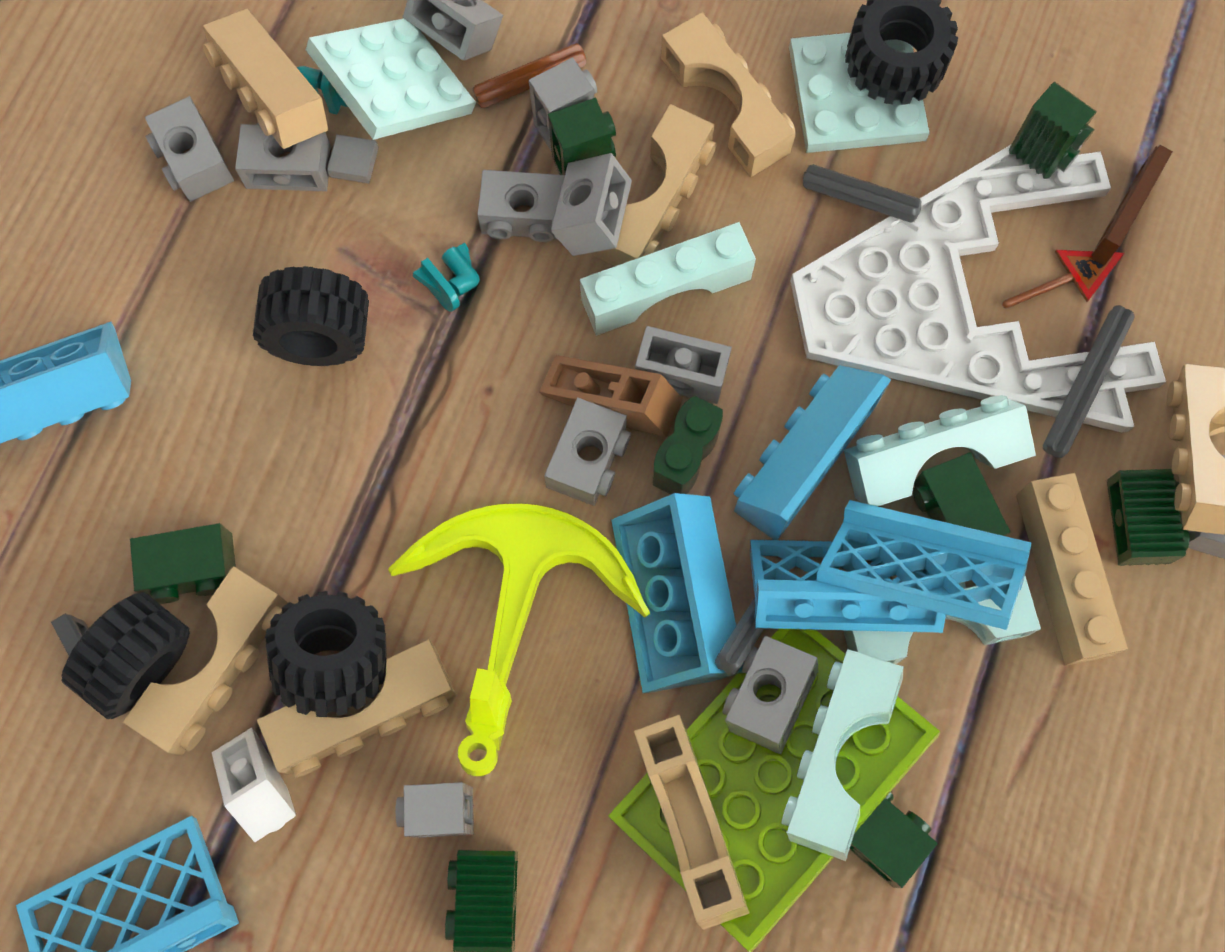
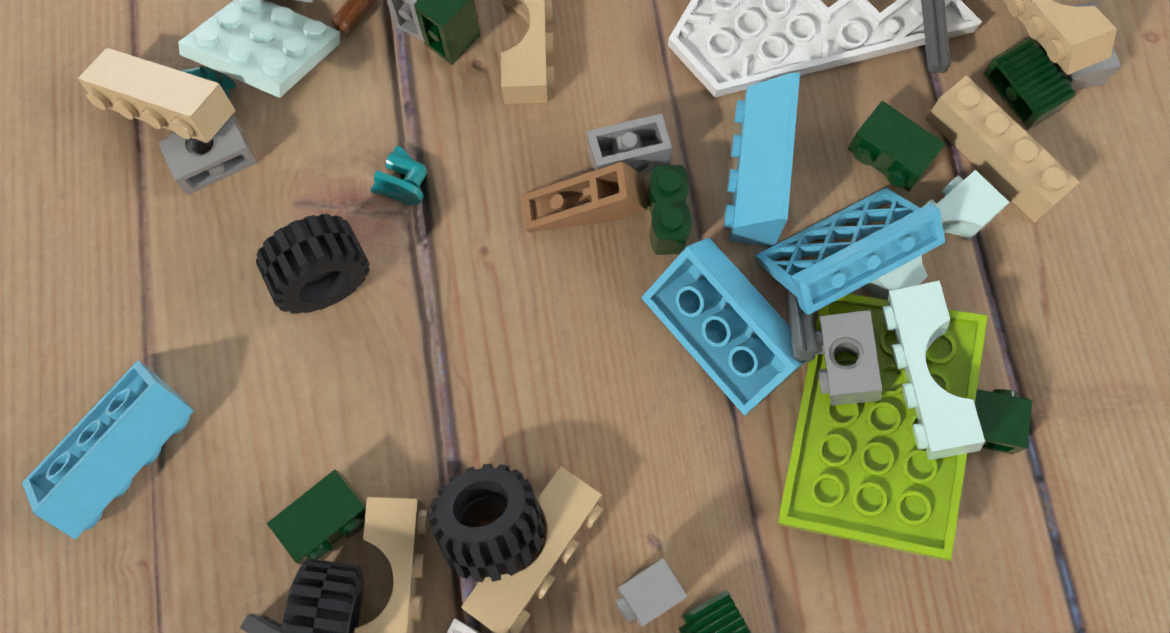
camera: 30 degrees left, 0 degrees up
(179, 129) = (107, 171): light grey brick -> none
(352, 158) = (265, 126): light grey tile -> none
(507, 190) = (435, 74): light grey brick -> none
(529, 544) = (591, 351): neon yellow piece -> none
(587, 426) = (590, 232): light grey brick -> none
(591, 205) = (487, 61): light grey brick -> none
(691, 823) = (872, 505): tan arch -> none
(705, 262) = (552, 112): light aqua arch -> none
(887, 466) = (828, 143): light aqua arch -> none
(943, 549) = (909, 180): medium azure fence -> none

